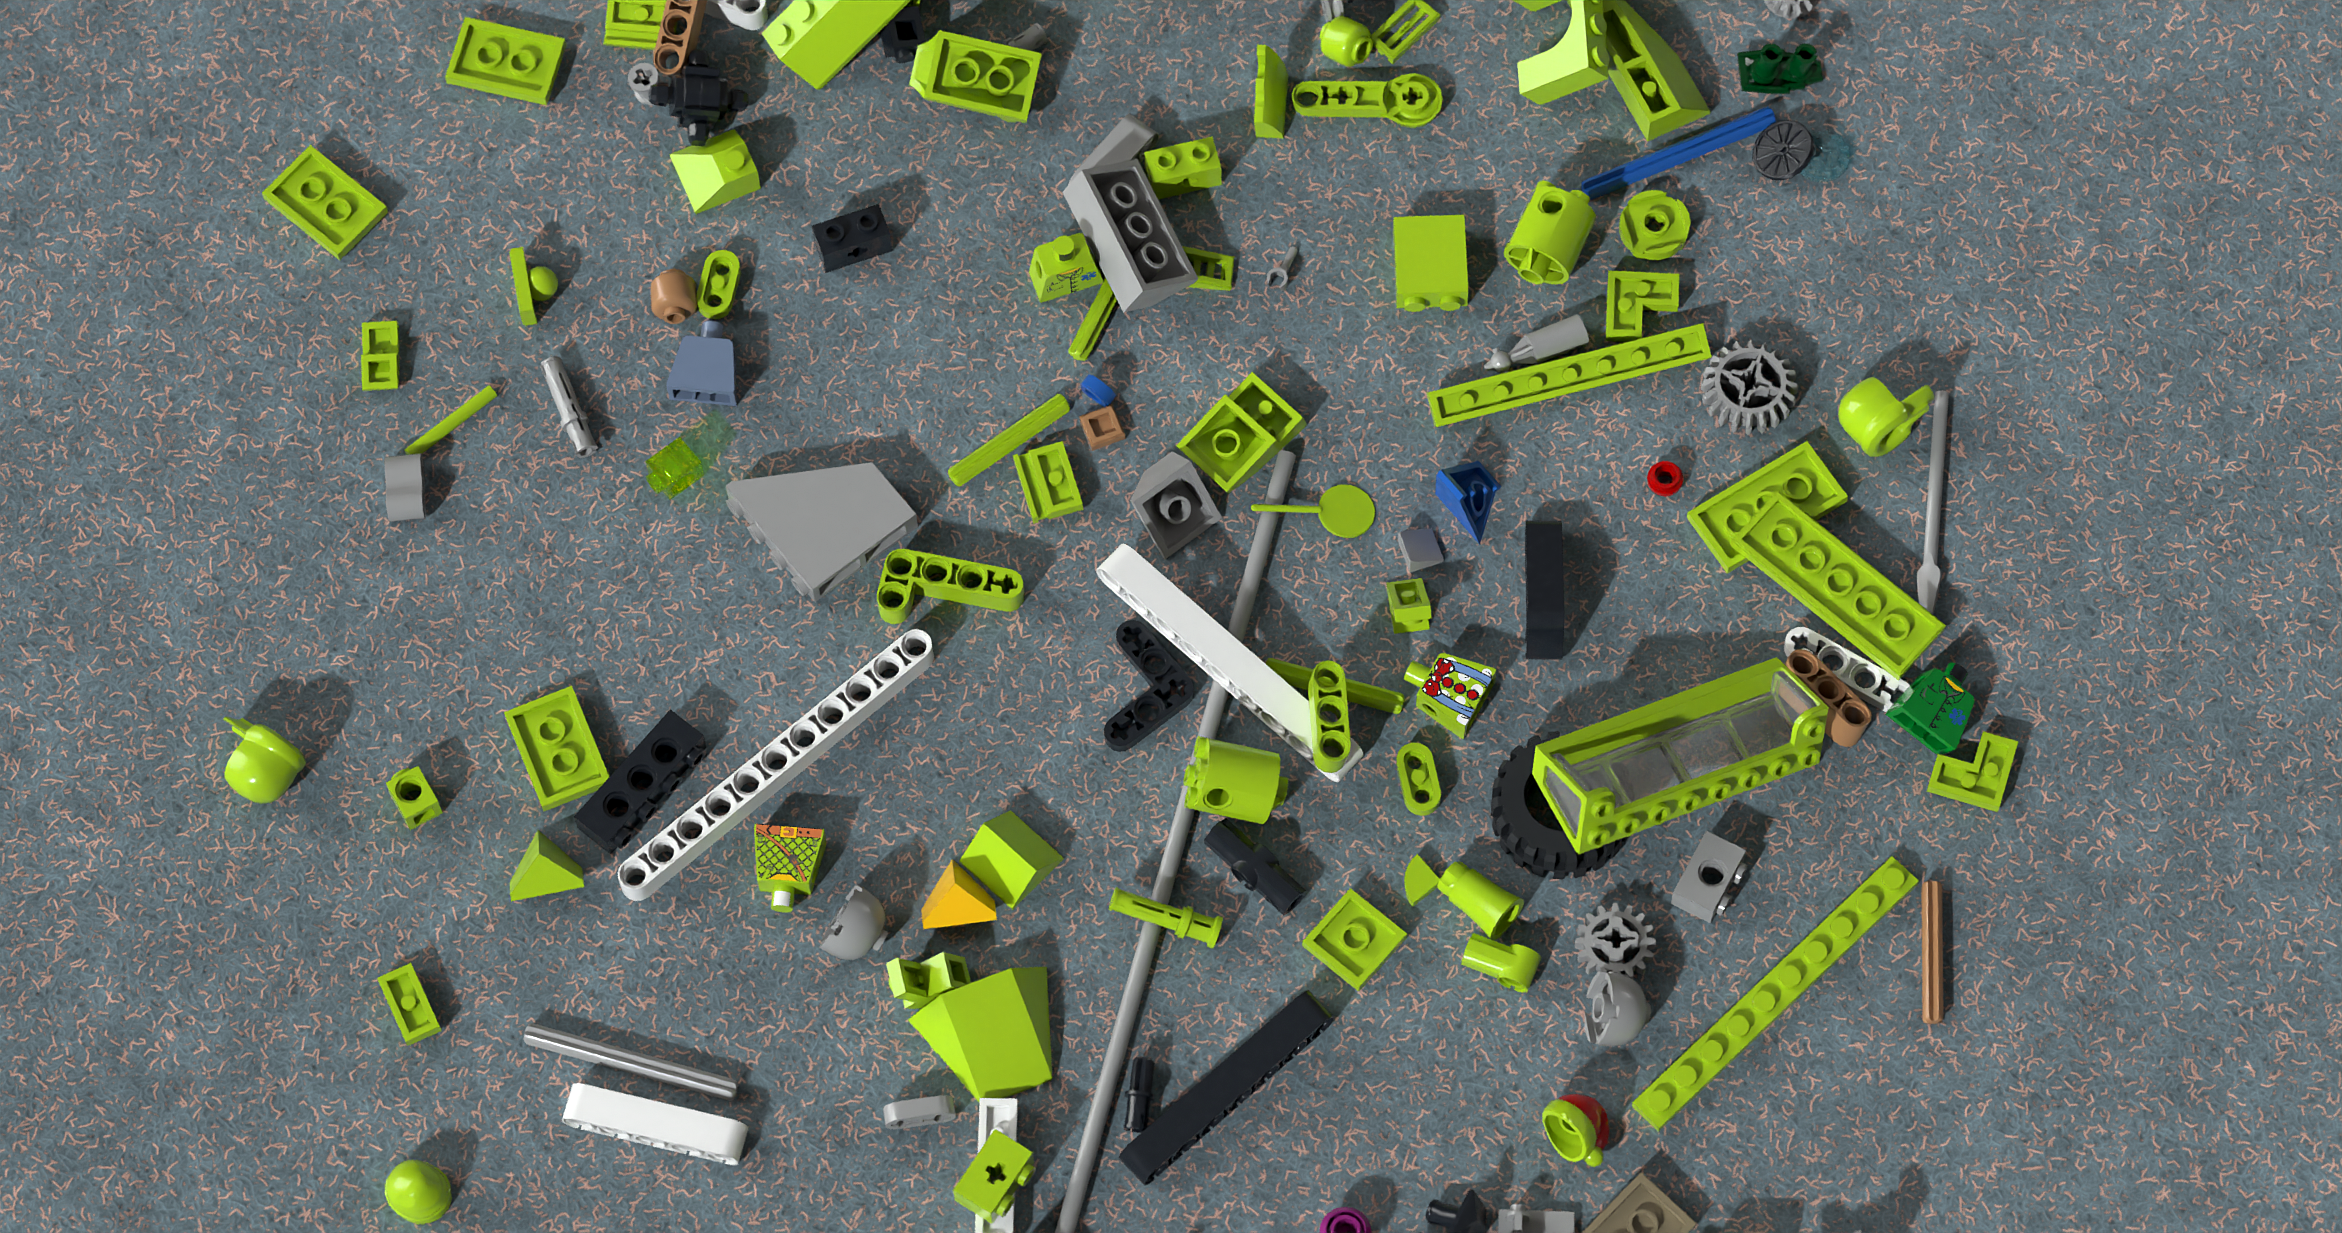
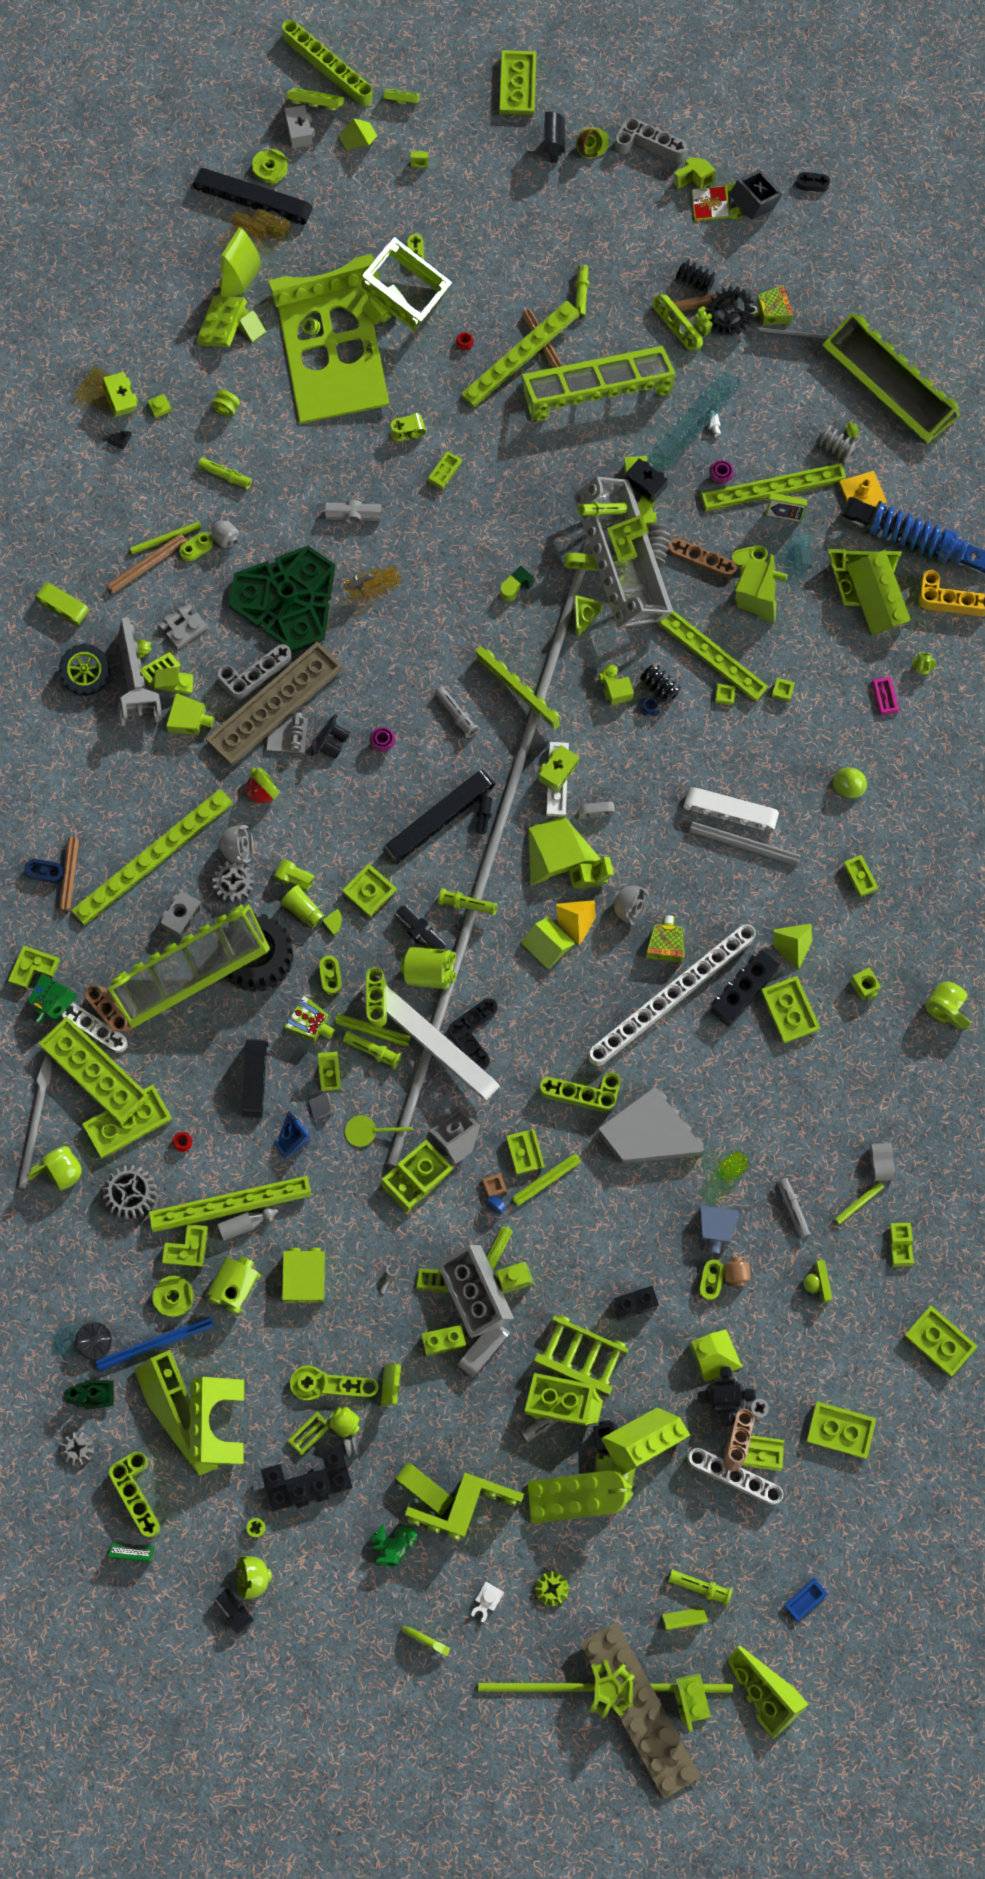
camera: 175 degrees right, 5 degrees up
(942, 124) = (565, 1369): none -> lime fence
(1317, 642) = (381, 1053): none -> lime pin
(1979, 951) = (44, 871): none -> dark blue plate

